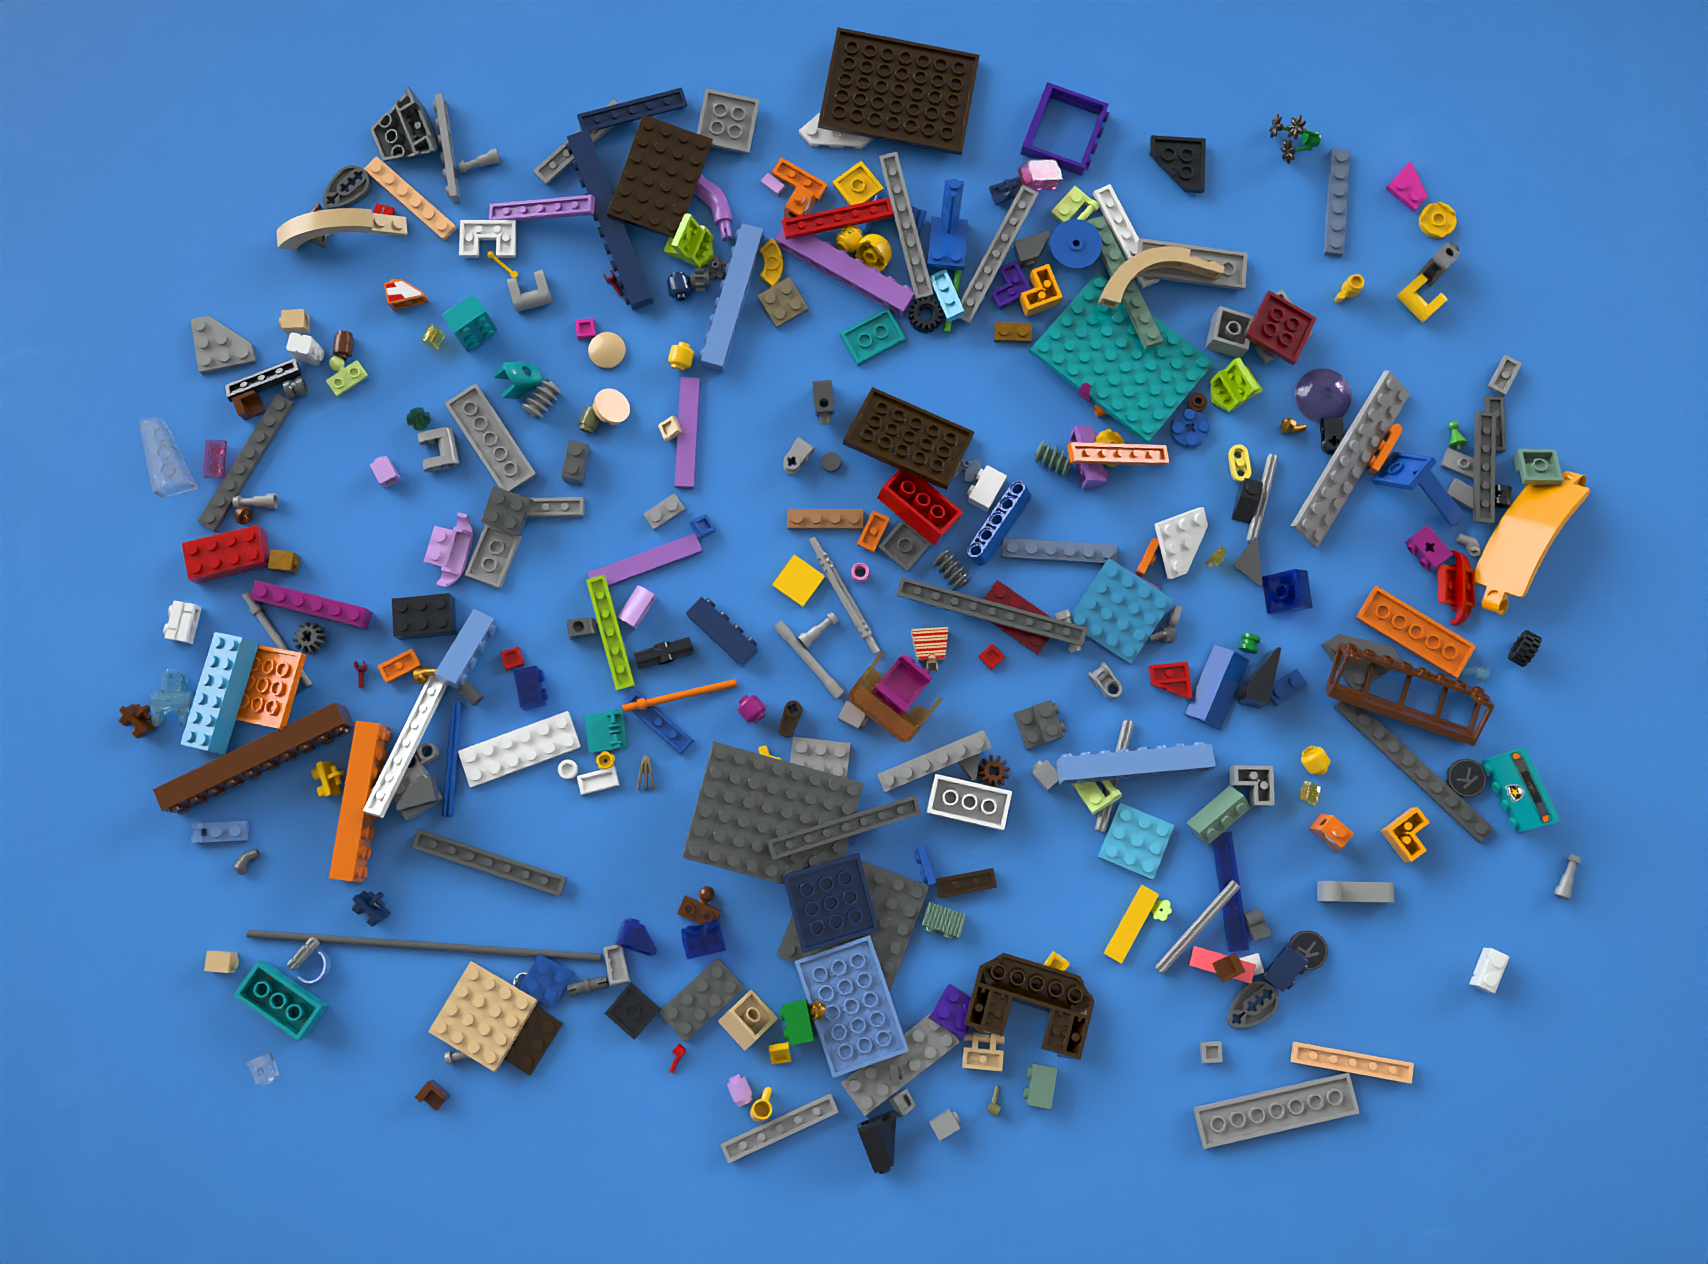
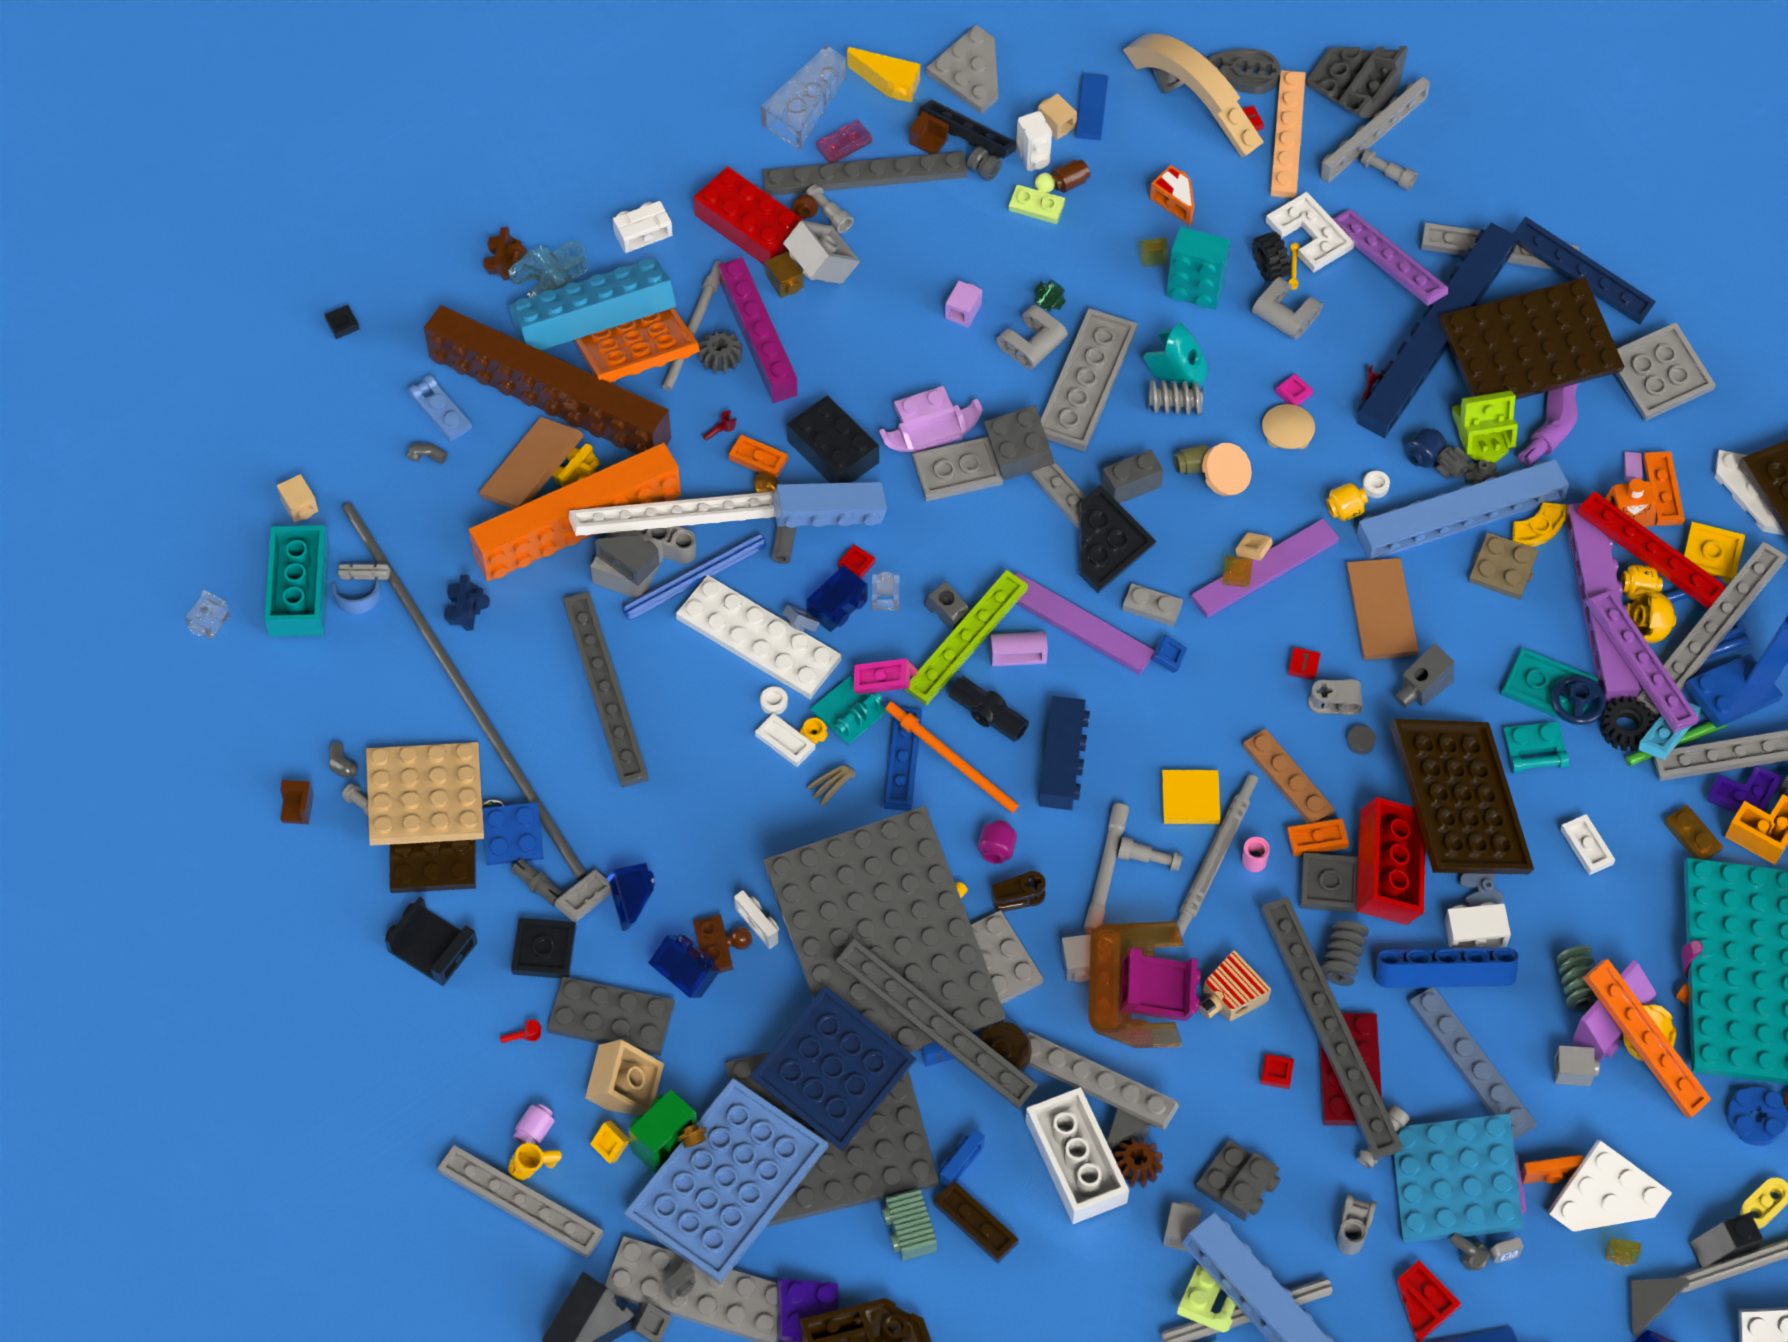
camera: 55 degrees right, 20 degrees down
(111, 851) = (341, 322): none -> black plate
(189, 396) = (887, 74): none -> yellow slope
(287, 531) = (821, 252): none -> light grey brick
(302, 295) = (1092, 106): none -> blue tile
(303, 804) = (531, 464): none -> medium nougat tile
(424, 1053) = (339, 764): none -> dark grey arm
(490, 274) = (1271, 256): none -> black tyre
(528, 718) = (800, 619): none -> sand blue plate
(546, 656) = (885, 585): none -> clear brick
(581, 1074) = (429, 942): none -> black panel
(603, 700) = (883, 676): none -> dark pink panel
(606, 506) = (1108, 539): none -> black plate
(679, 330) = (1376, 484): none -> white tile
(680, 450) = (1237, 571): none -> clear yellow plate
(692, 876) = (751, 912): none -> white plate
(759, 388) = (1382, 609): none -> medium nougat tile
(762, 457) = (1304, 664): none -> red tile
(877, 793) = (1009, 1042): none -> dark brown tile
(894, 322) = (1581, 687): none -> dark blue piece
(897, 371) = (1535, 740): none -> teal plate
(899, 278) = (1642, 661): none -> medium lavender tile
(980, 392) = (1587, 844): none -> white plate
(1100, 499) = (1575, 1066): none -> light grey brick

